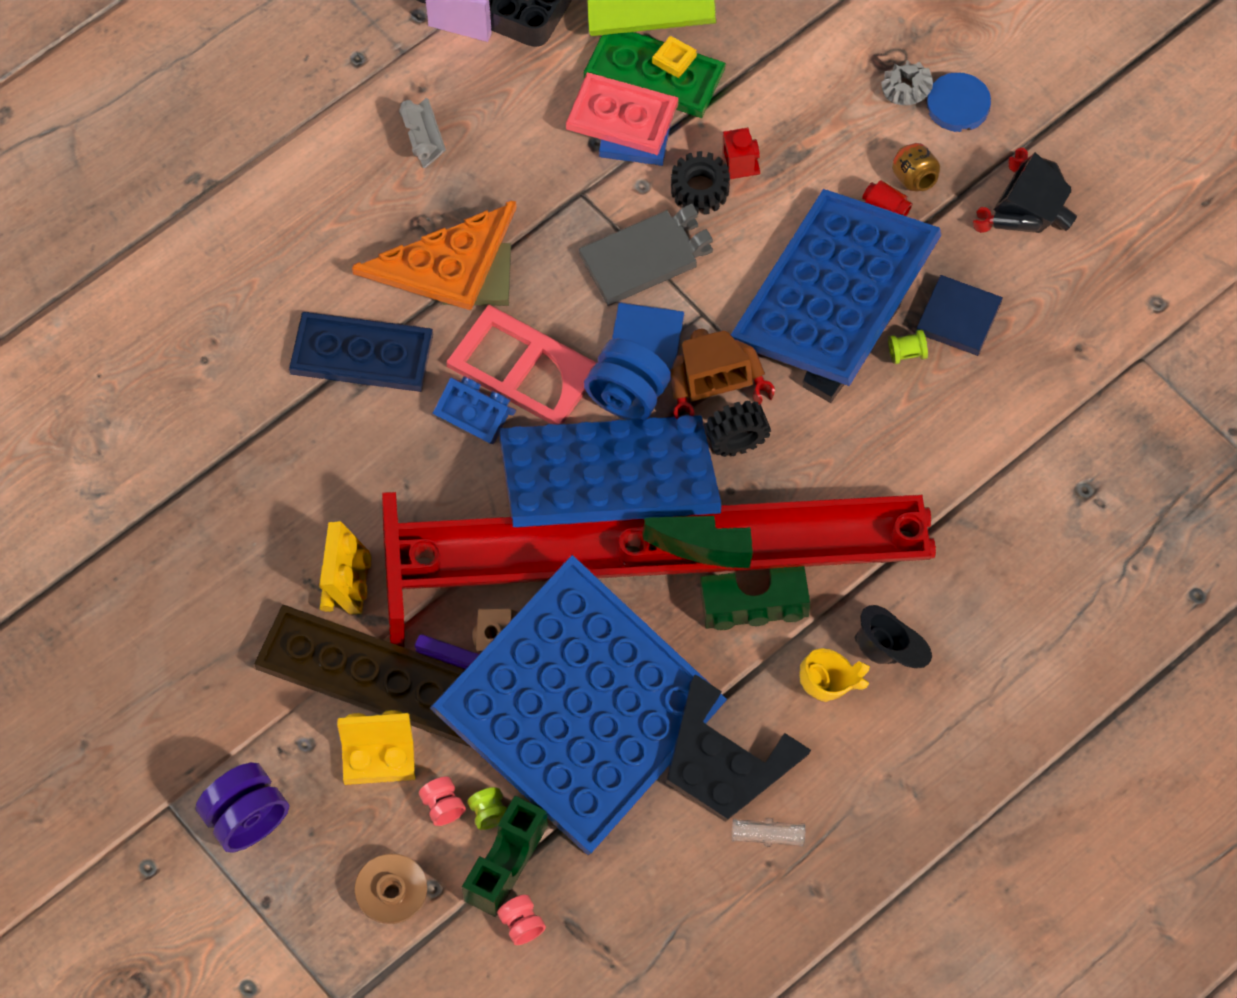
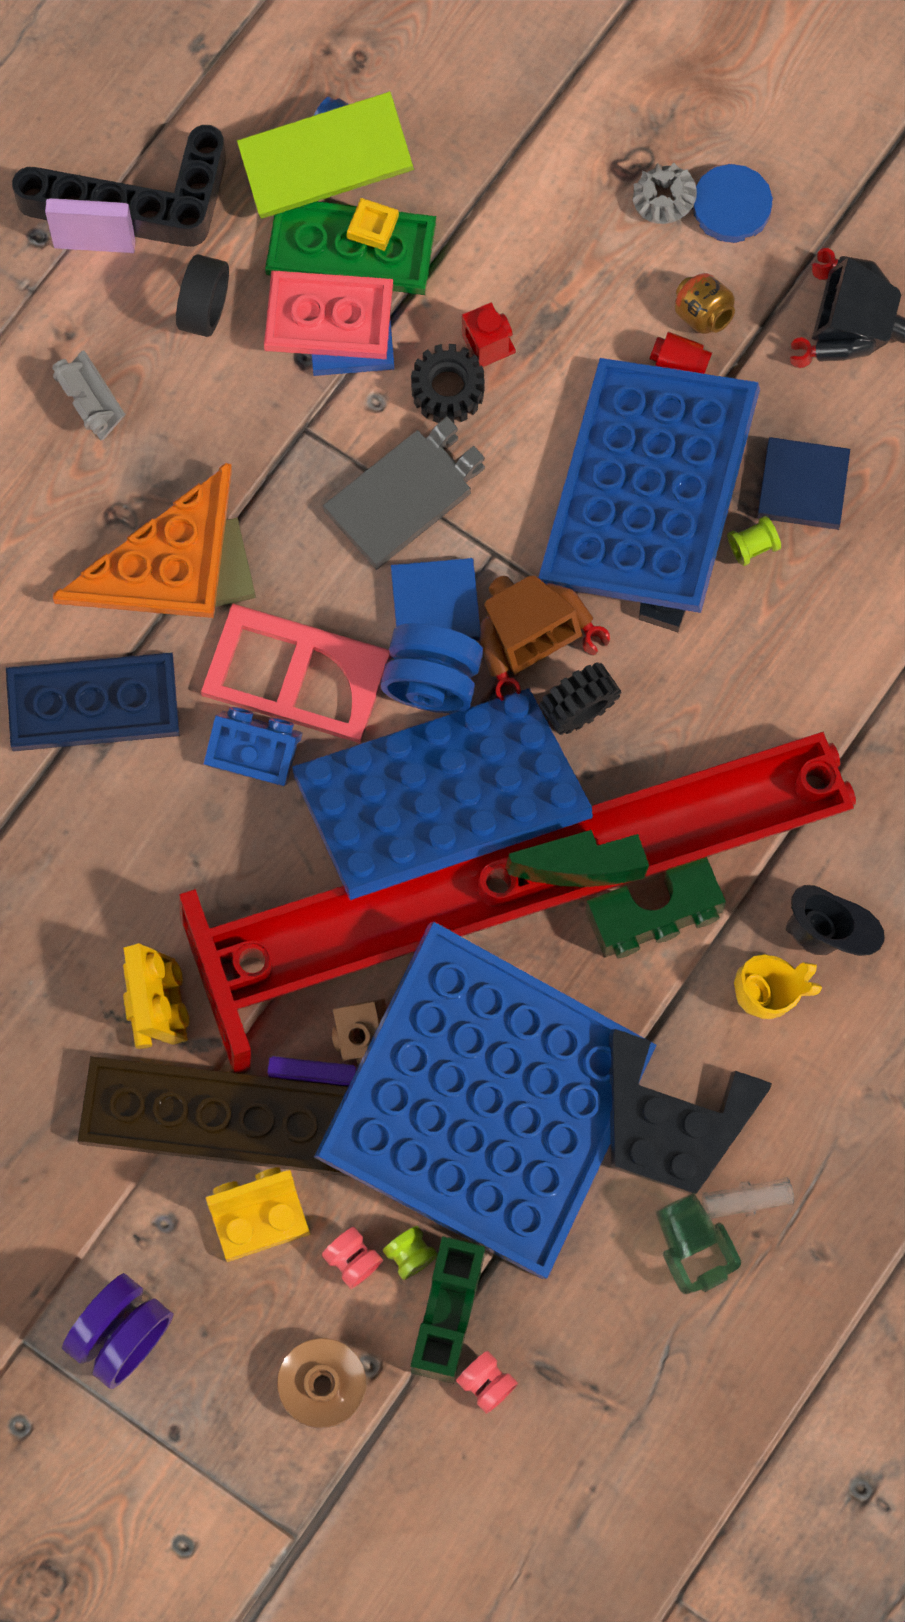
camera: 15 degrees left, 10 degrees up
(528, 77) = (202, 295): none -> black tyre
(715, 845) = (689, 1231): none -> clear green piece

